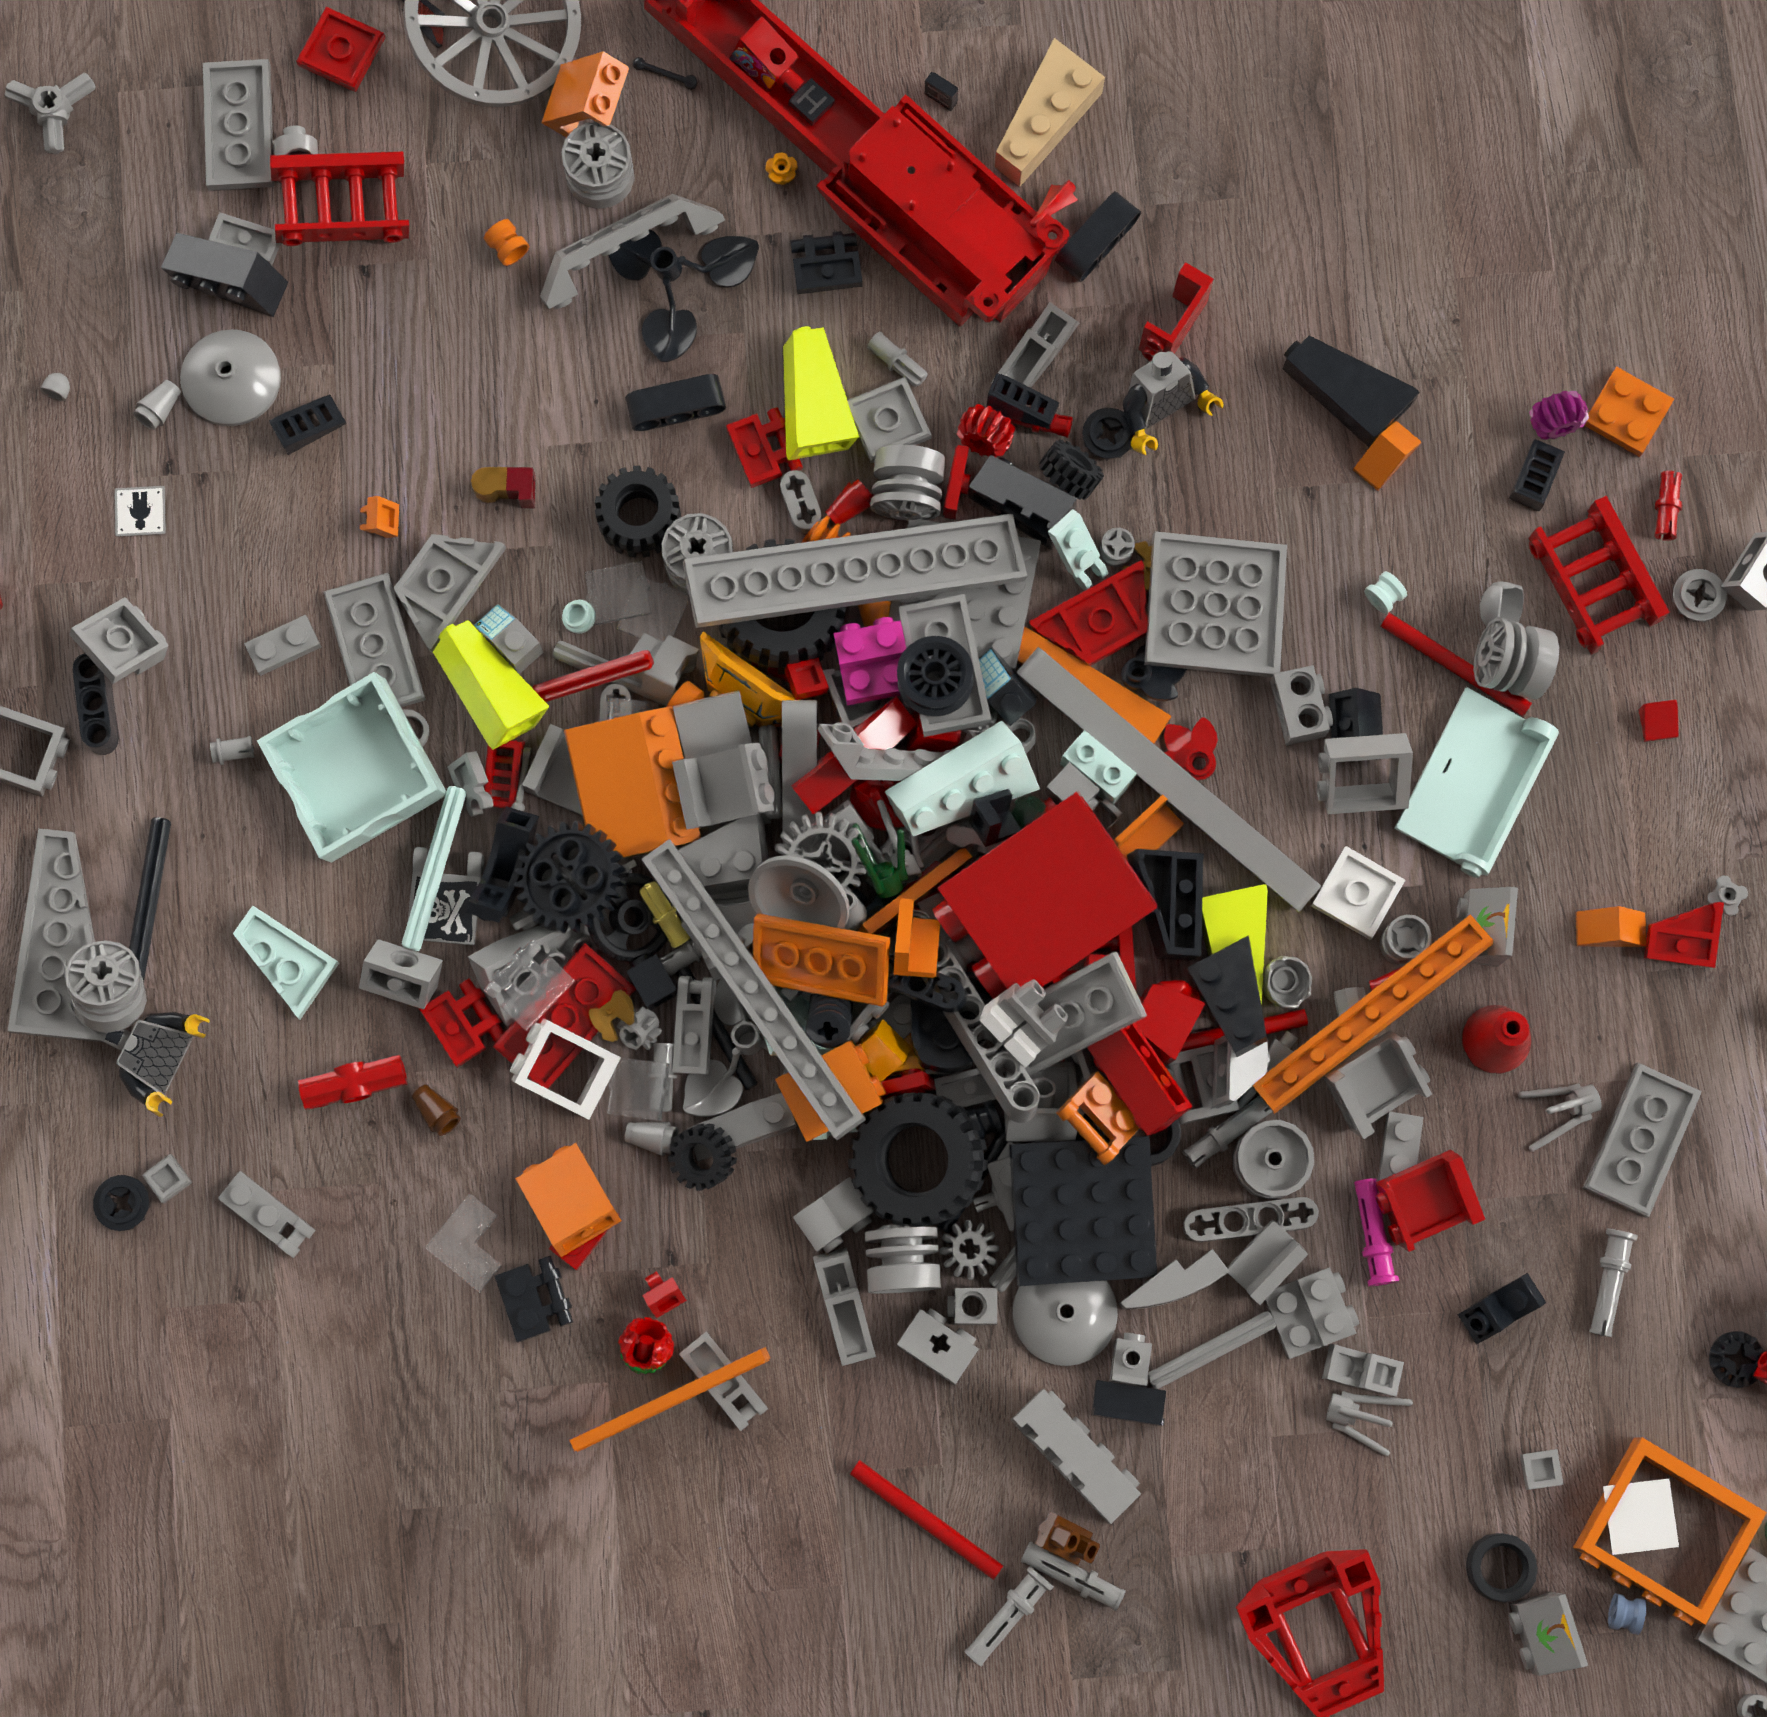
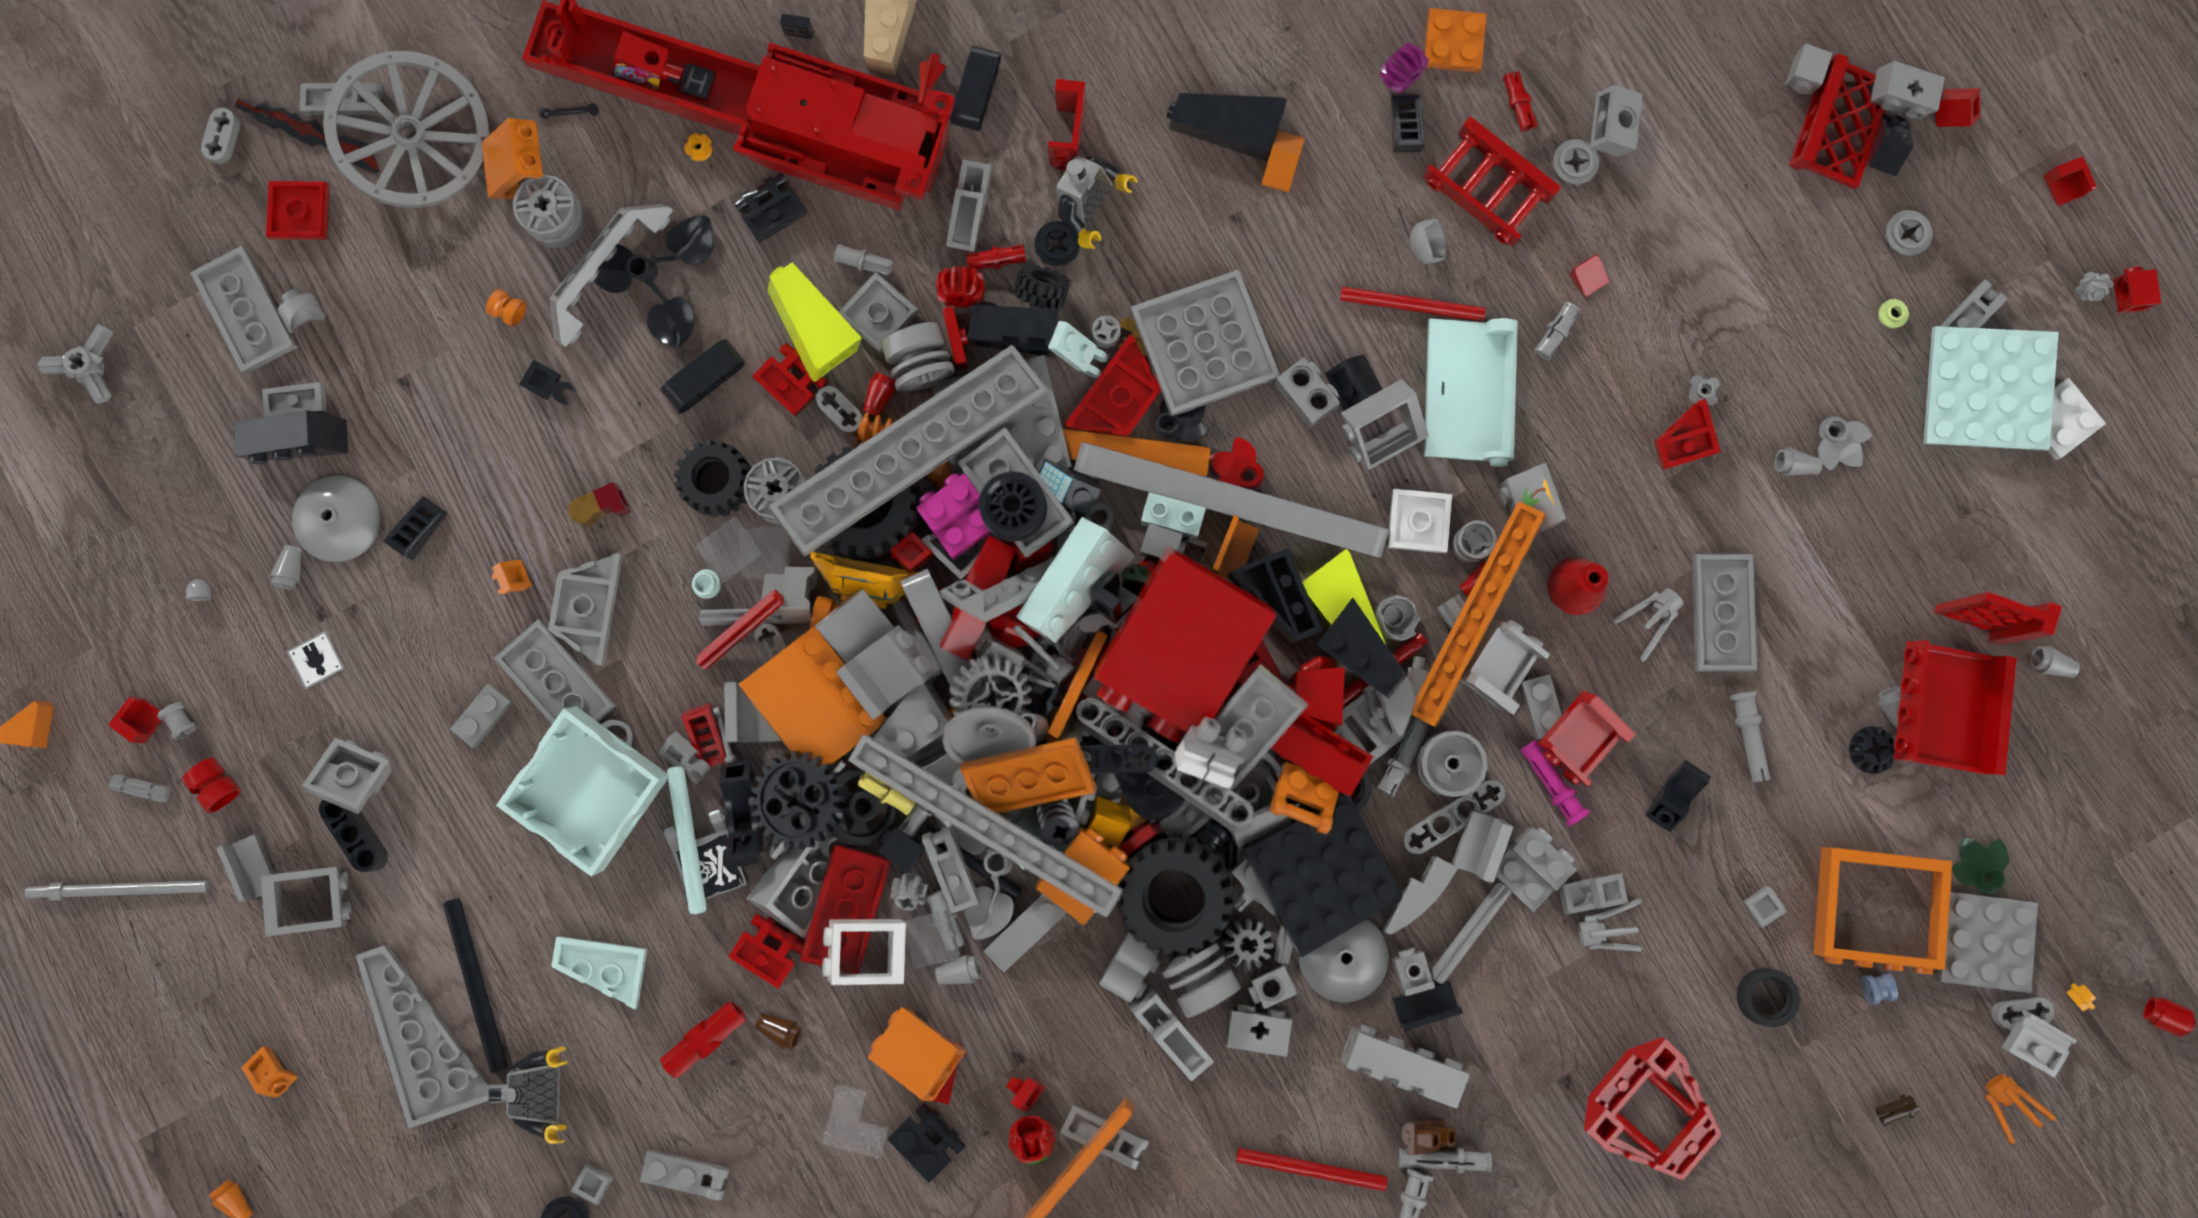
camera: 20 degrees left, 5 degrees up
(108, 1002) = (481, 1068): light grey wheel -> none
(231, 749) = (480, 819): light grey pin -> none
(352, 168) = (329, 315): red fence -> none
(400, 974) = (700, 937): light grey brick -> none
(488, 685) = (660, 674): neon yellow slope -> none
(509, 335) = (544, 381): none -> black plate
(509, 638) = (659, 627): light grey slope -> none
(536, 992) = (814, 905): clear plate -> none
(619, 1006) = (885, 883): pearl gold piece -> none
(689, 1169) = (996, 981): black tyre -> none
(884, 875) = (1047, 684): dark green plant -> none
(915, 943) = (1097, 729): orange panel -> none
(1011, 399) = (962, 249): black slope -> none
(1385, 592) = (1332, 272): light aqua wheel -> none
(1516, 658) = (1460, 279): light grey wheel -> none
(1547, 1634) = (1828, 1034): light grey slope -> none
(1598, 762) = (1557, 331): none -> light grey pin
(1611, 927) = (1625, 457): orange slope -> none
(1643, 1518) = (1860, 909): white sticker -> none

